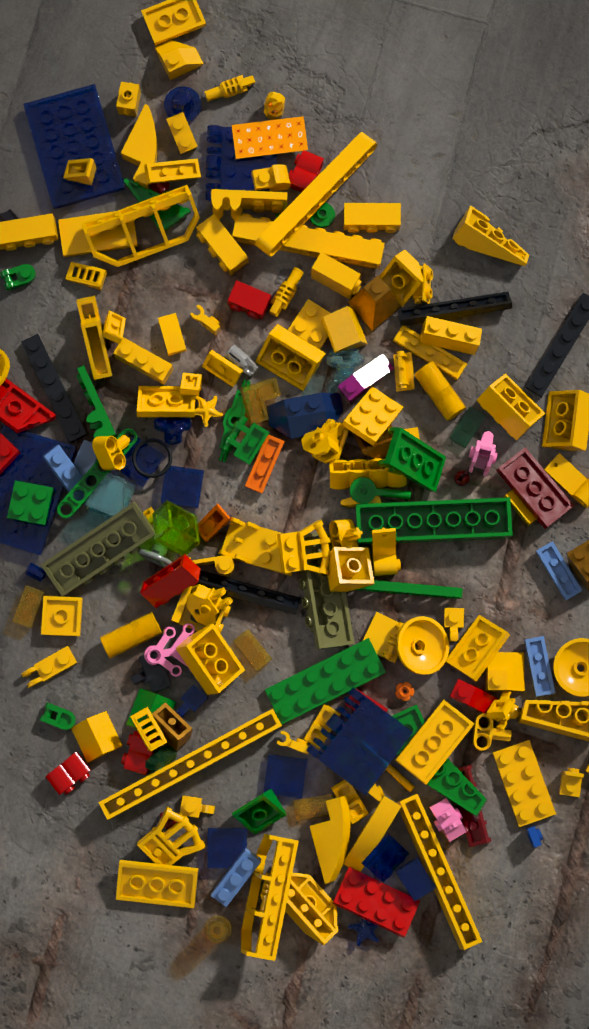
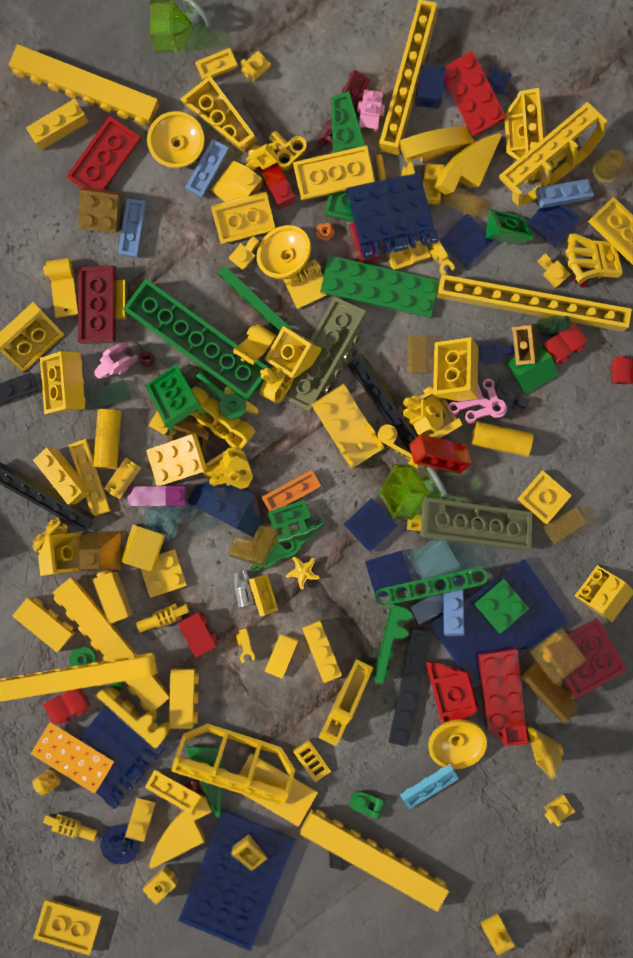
camera: 140 degrees left, 5 degrees up
(35, 572) = (538, 548): clear blue hinge -> none
(51, 666) = (581, 465): yellow hinge -> none
(64, 720) = (602, 415): green plate -> none
(96, 736) = (587, 382): yellow slope -> none
(109, 451) = (409, 594): yellow beam -> none
(114, 327) = (324, 697): yellow plate -> none
(157, 474) = (394, 566): black tyre -> none
(162, 740) = (549, 336): yellow slope -> none
(164, 402) = (330, 602): yellow plate -> none
(173, 428) = (340, 578): clear blue plate -> none
(178, 58) = (91, 888): yellow slope -> none
(191, 384) = (299, 600): yellow bracket -> none
(213, 522) = (369, 476): orange slope -> none
(272, 178) = (99, 719): yellow brick -> none
(290, 357) = (202, 561): yellow slope -> none
(293, 553) = (325, 401): yellow plate -> none
(385, 858) = (442, 117): clear blue plate -> none
(524, 783) = (290, 94): yellow plate -> none
(534, 836) = (315, 48): blue plate -> none

